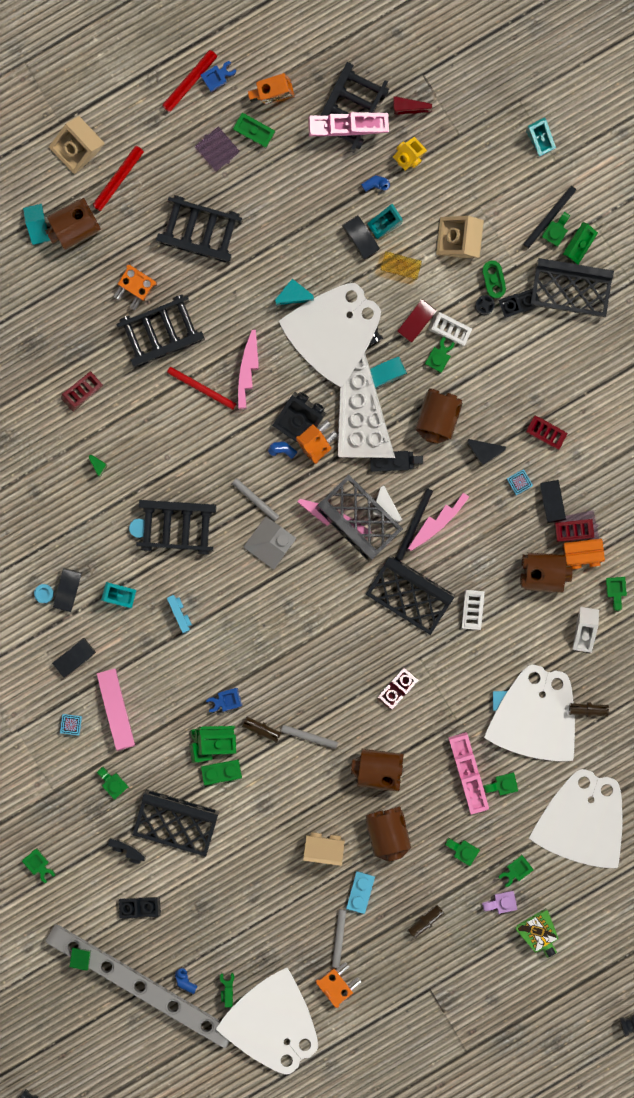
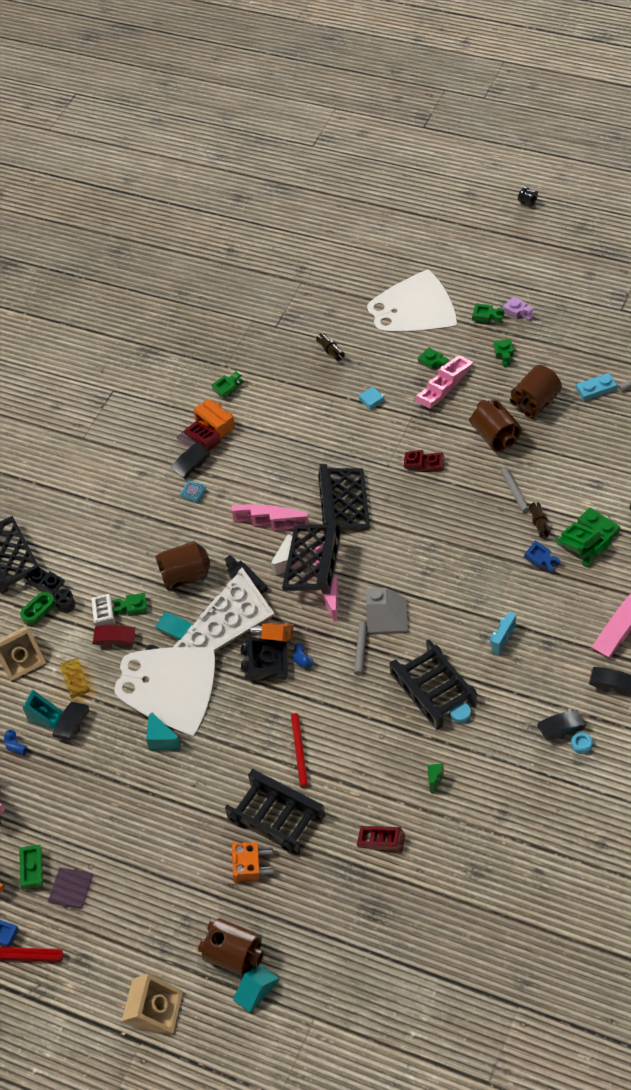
camera: 120 degrees left, 35 degrees down
(118, 178) = (157, 948): red axle -> none
(118, 595) = (531, 688): teal slope -> none
(203, 248) = (177, 847): black fence -> none
(249, 363) = (249, 726): bright pink slope -> none
(324, 849) = (589, 418): tan slope -> none
(414, 524) = (274, 536): black bar -> none
(426, 921) = (576, 337): dark brown pin -> none
(465, 609) = (306, 455): white slope -> none
(484, 451) = (187, 523): black slope -> none
(529, 431) = (139, 510): dark red slope -> none
(533, 723) = (369, 369): white piece -> none
(539, 932) = (515, 276): torso -> none
(552, 572) = (250, 426): reddish brown cylinder -> none
(586, 629) = (270, 382): white slope -> none

